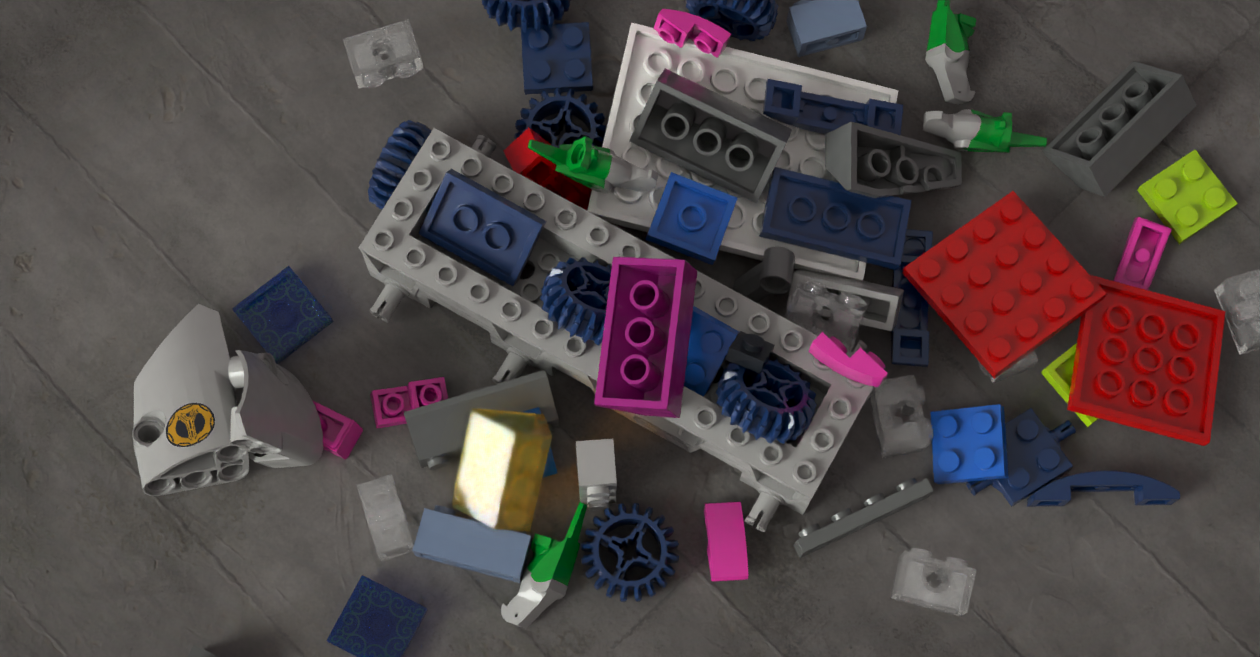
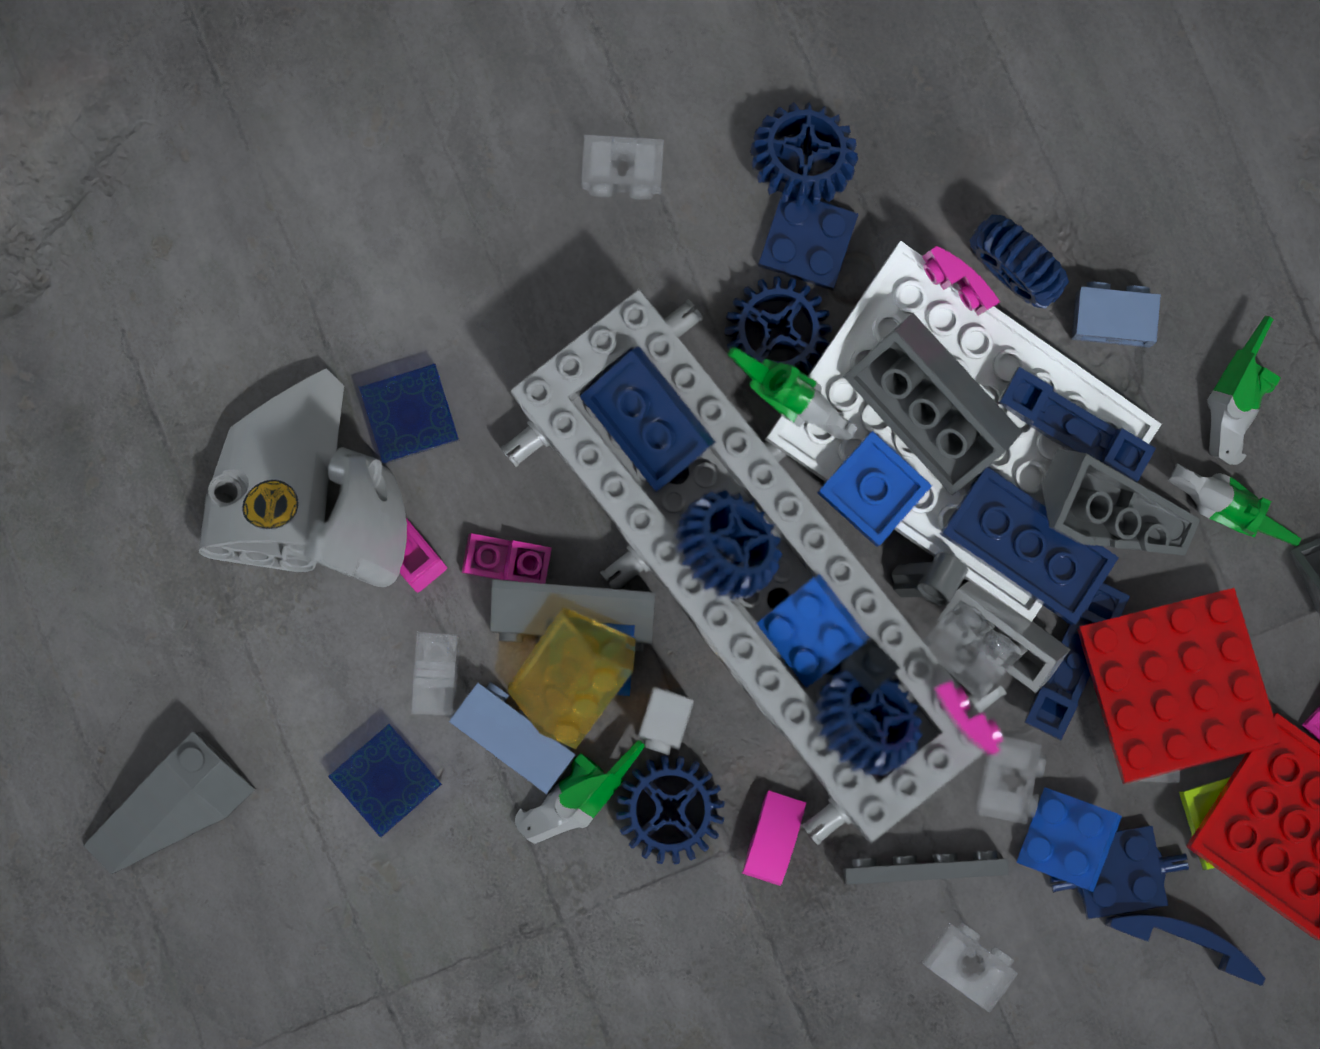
camera: 25 degrees right, 10 degrees up
(395, 160) = (592, 302): dark blue gear -> none
(543, 171) = (734, 380): red slope -> none
(646, 336) = (767, 612): magenta slope -> none

